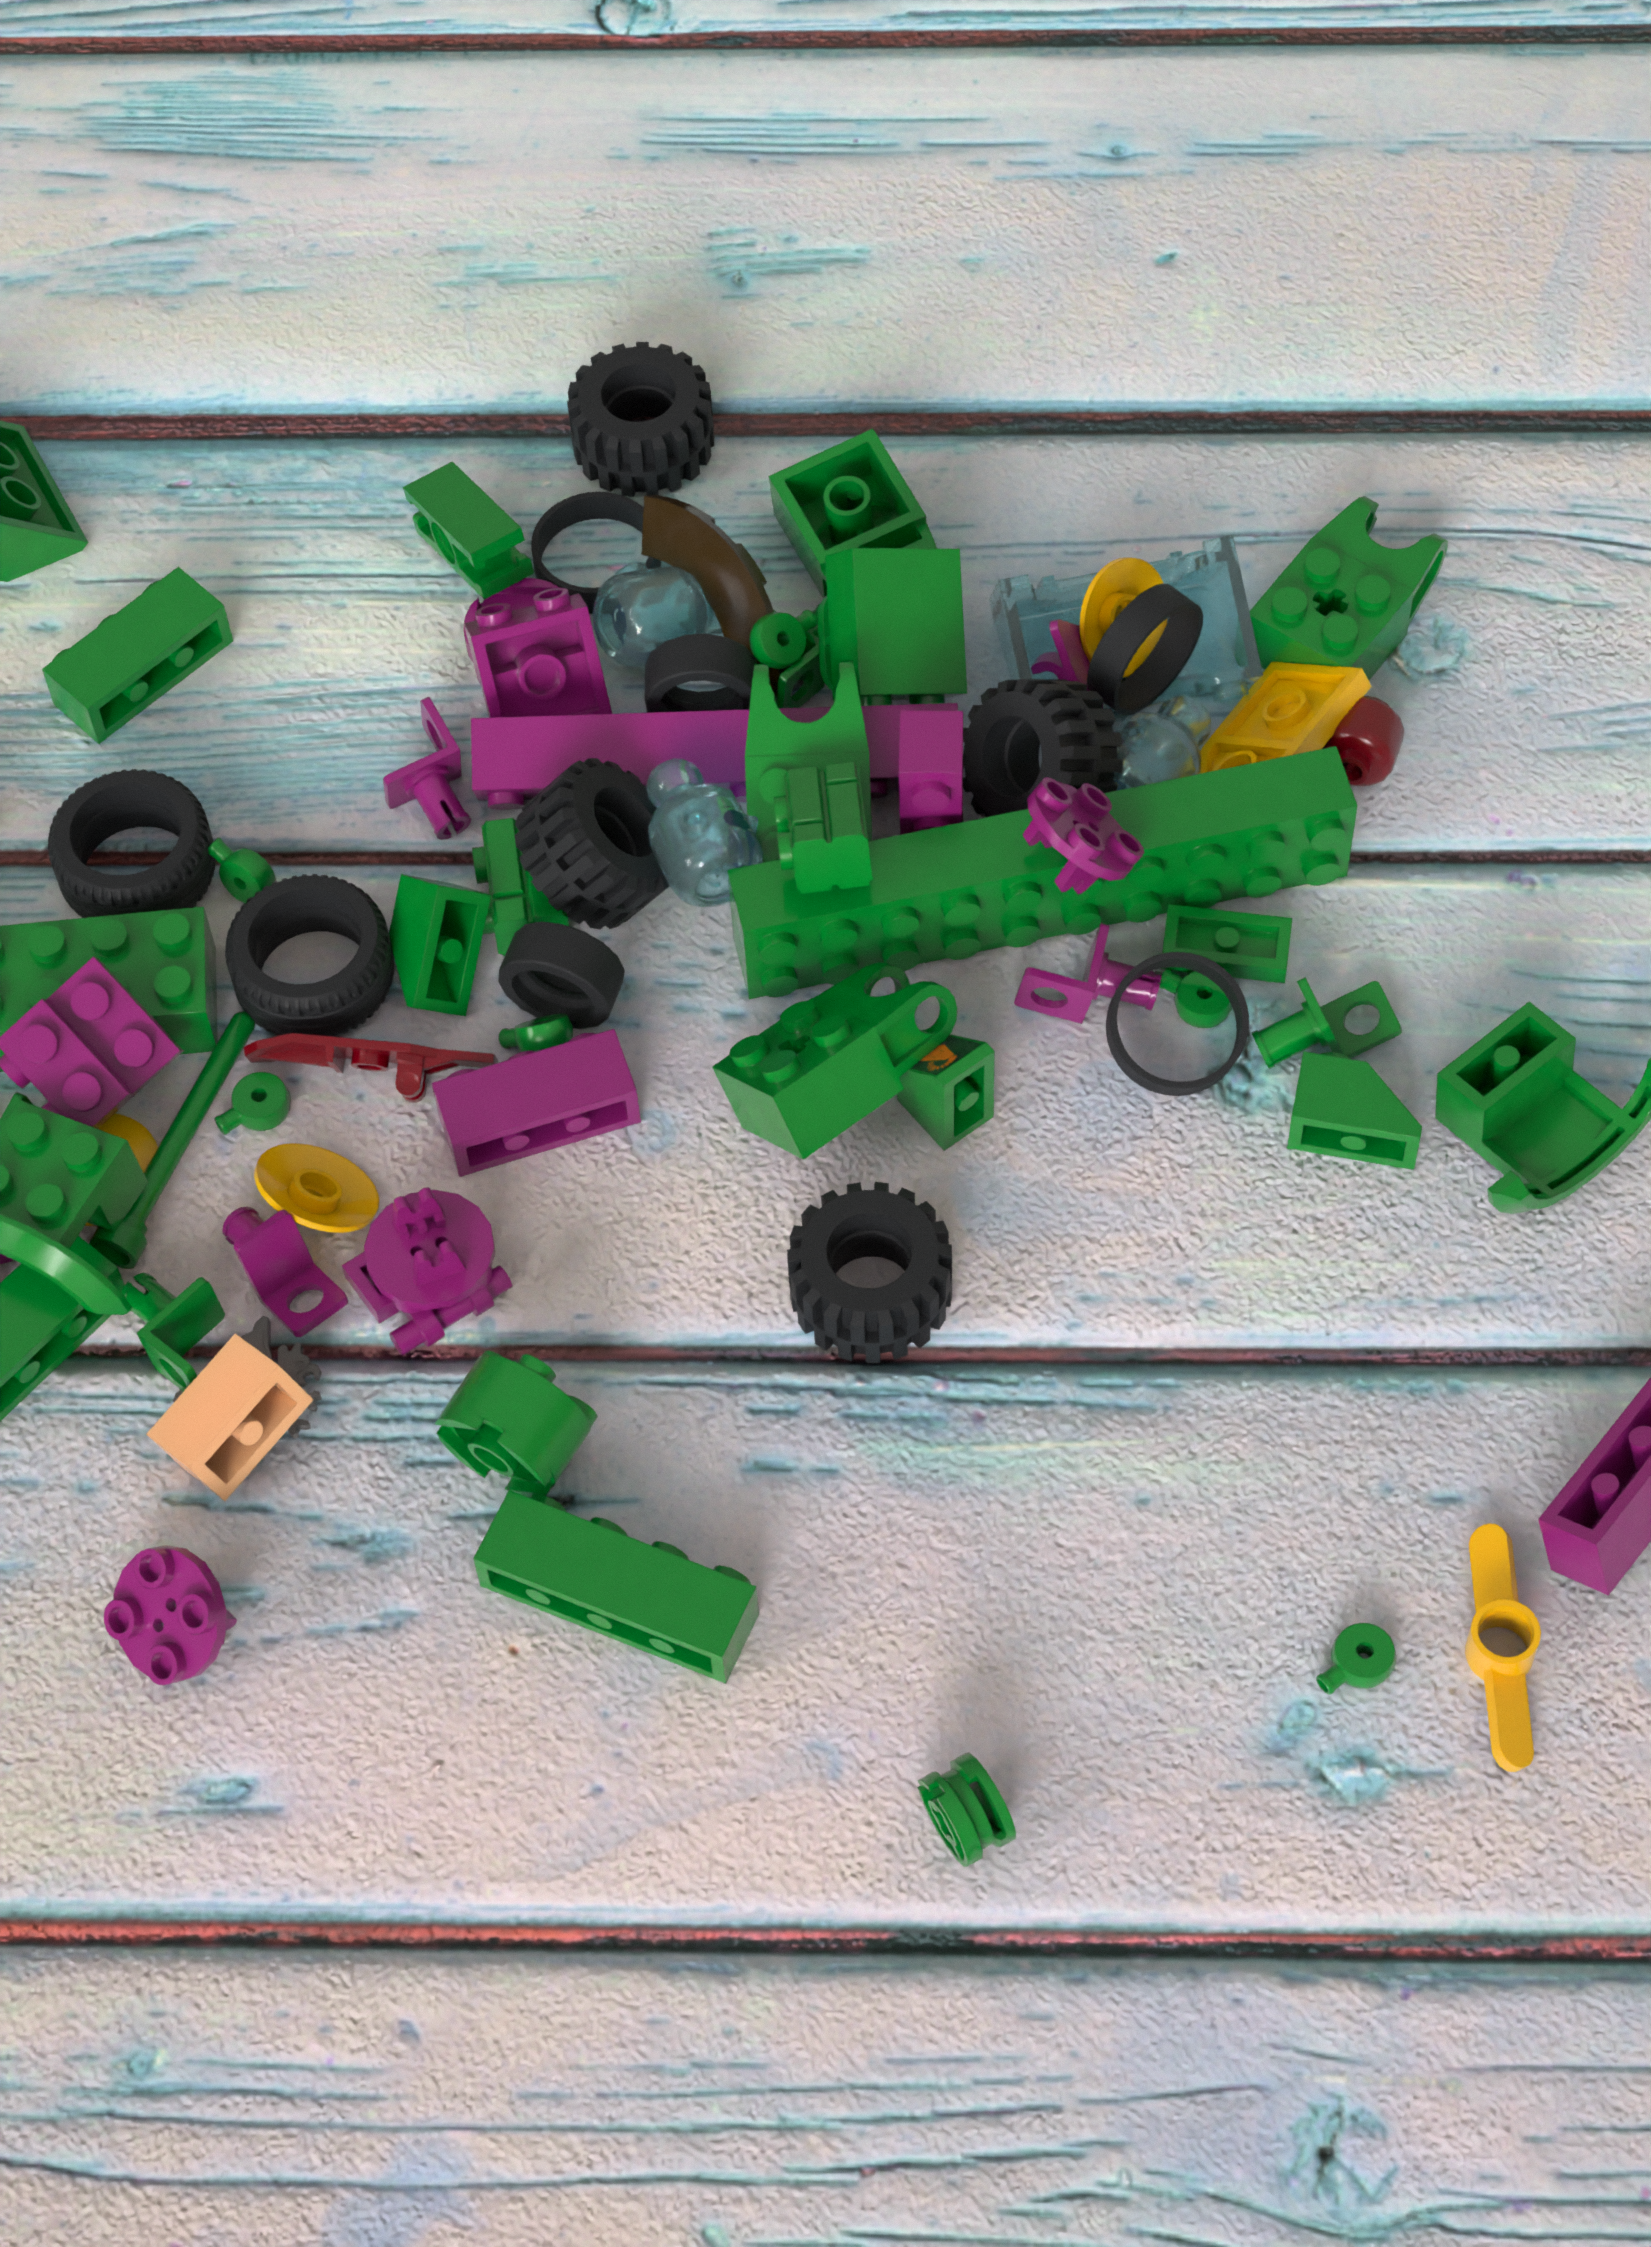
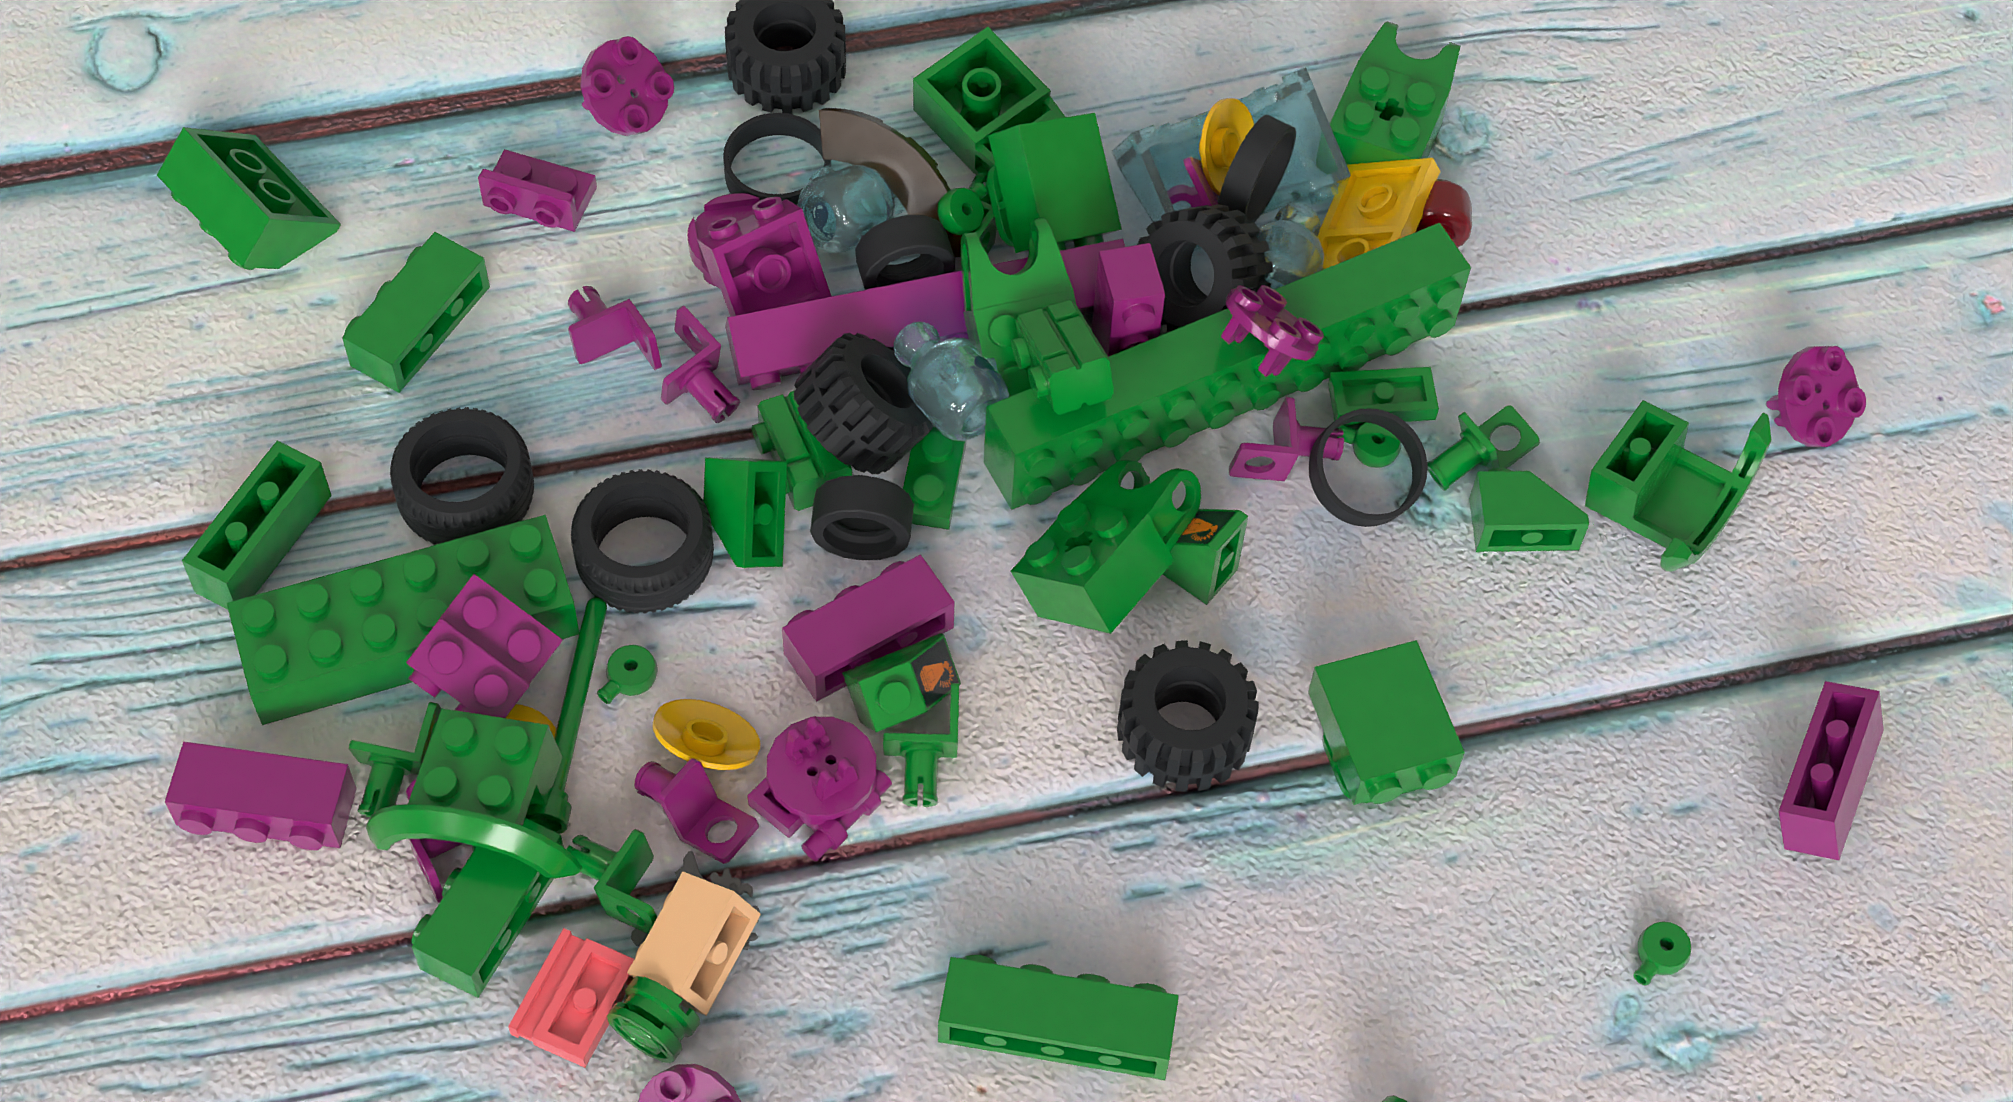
camera: 20 degrees left, 0 degrees up
(85, 1452) = (572, 998): none -> coral plate
(162, 1492) = (653, 1019): none -> green wheel
(241, 870) = (562, 480): green piece -> none
(315, 539) = (537, 190): none -> magenta bracket
(341, 708) = (609, 328): none -> magenta bracket
(413, 1060) = (715, 614): dark red piece -> none
(462, 420) = (639, 73): none -> magenta plate
(468, 530) = (670, 162): green piece -> none
(514, 1422) = (938, 899): green brick -> none
(538, 1033) = (851, 570): green piece -> none
(557, 1171) = (902, 683): none -> green slope
(558, 1253) = (922, 755): none -> green bracket
(666, 948) = (934, 479): none -> green plate
(1099, 1326) = (1385, 724): none -> green brick
(1503, 1676) = (1756, 887): yellow piece -> none

